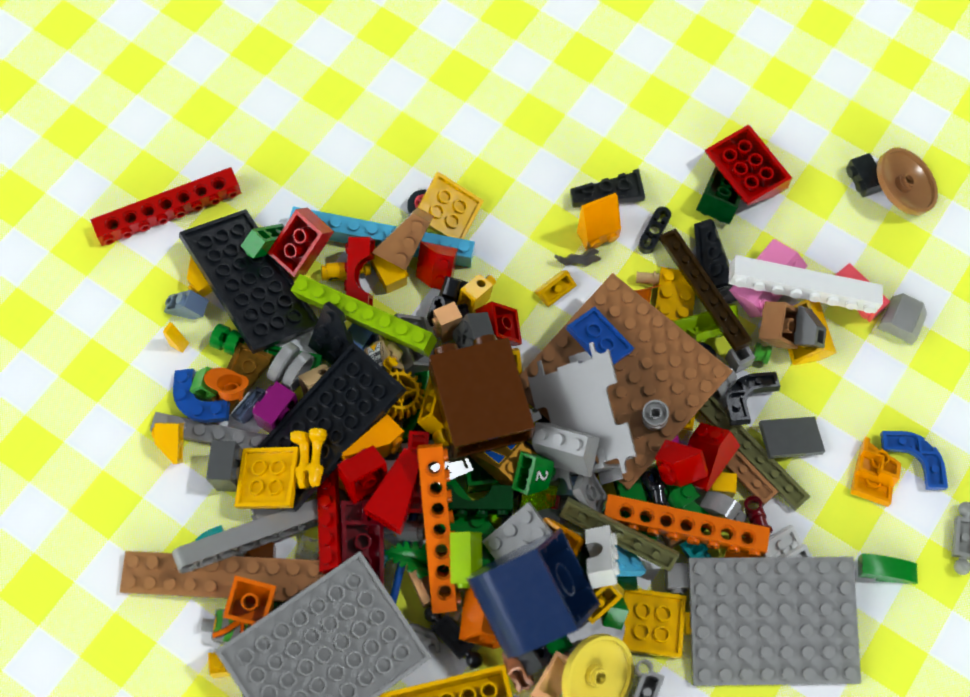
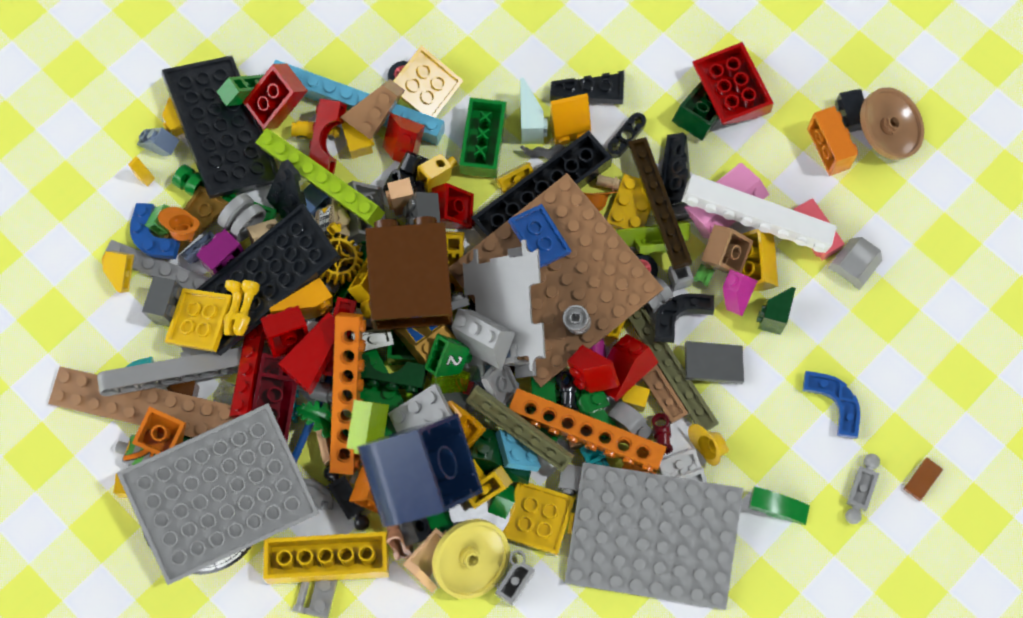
camera: 15 degrees right, 5 degrees up
(156, 204) = (148, 38): red brick -> none
(516, 253) = (483, 137): none -> green brick
(559, 223) = (533, 123): none -> light aqua slope
(602, 564) = (493, 457): white arch -> none
(619, 256) = (580, 160): none -> black brick
(799, 364) = (737, 291): none -> dark pink slope
(807, 519) = (709, 444): none -> yellow piece
(809, 329) = (753, 258): dark grey slope -> none
(842, 379) = (776, 312): none -> dark green slope
(855, 205) = (832, 140): none -> orange brick
(875, 474) = (789, 412): light orange slope -> none

